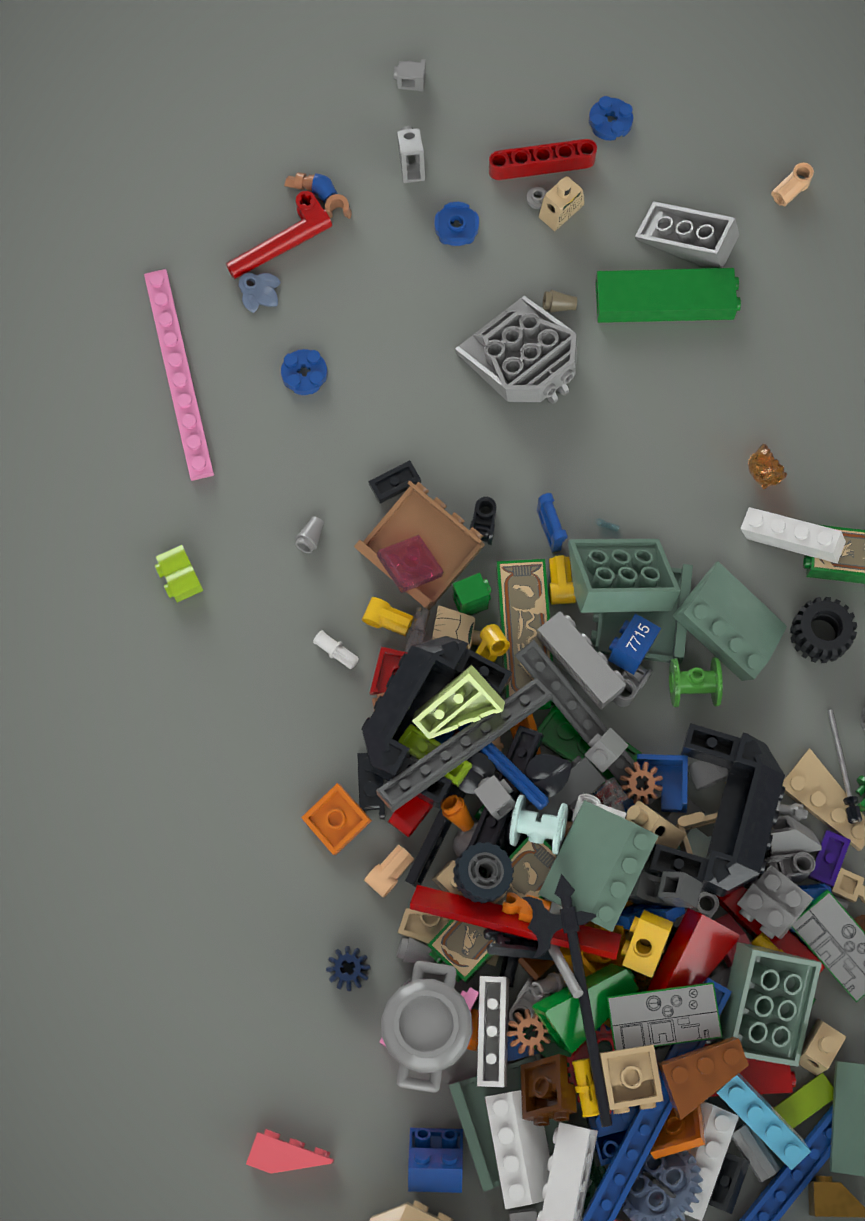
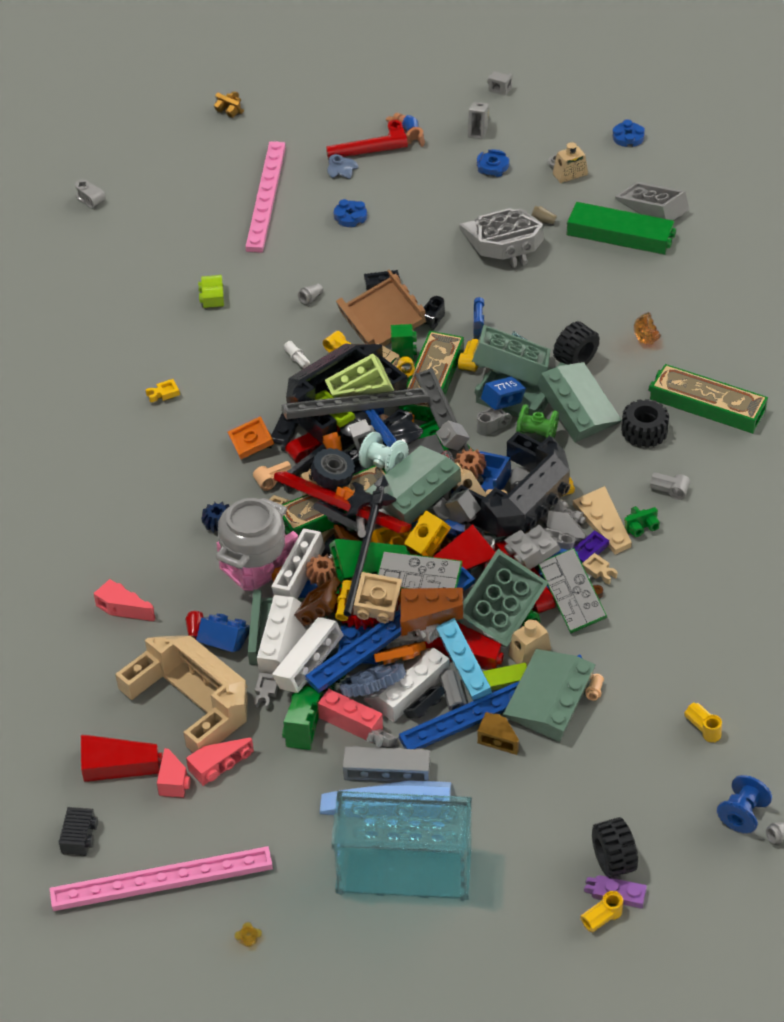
camera: 20 degrees right, 25 degrees down
(50, 220) = (230, 101): none -> pearl gold hips
(189, 769) = (164, 390): none -> yellow plate
(393, 1160) = (193, 622): none -> red cone
(410, 563) = (368, 315): clear pink plate -> none
(550, 152) = (557, 141): red beam -> none
(581, 660) = (460, 389): light grey brick -> none
(695, 532) = (576, 344): none -> black tyre
(793, 185) = (745, 191): light nougat piece -> none
(793, 535) = (645, 362): white brick -> none
(853, 812) = (617, 521): piece -> none

